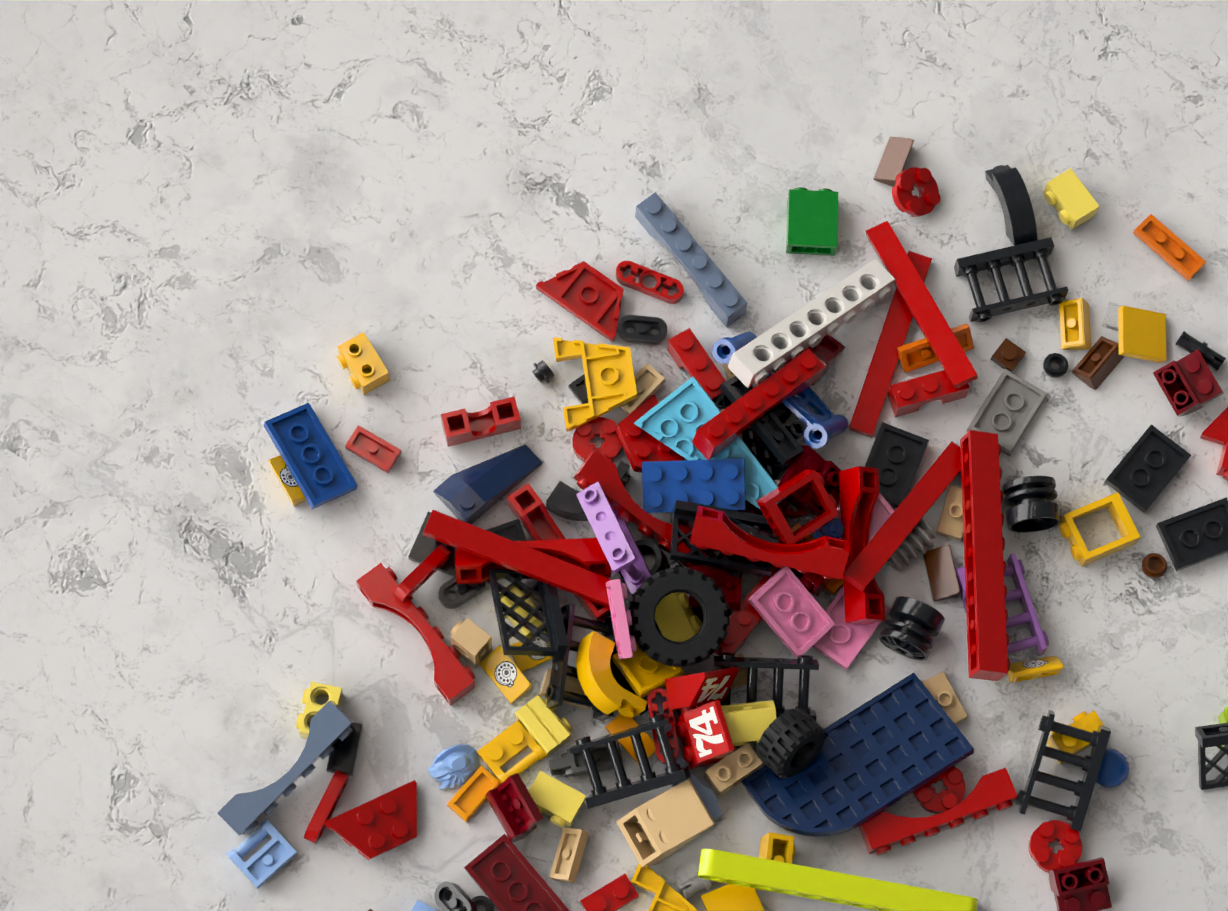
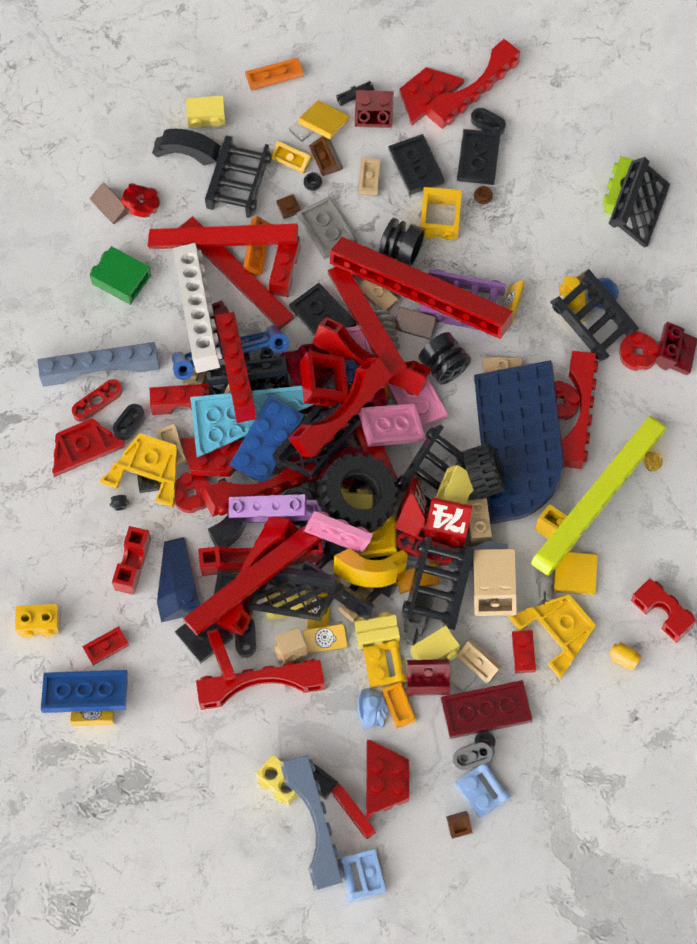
camera: 55 degrees left, 5 degrees down
(1099, 424) = (369, 176): none -> tan plate

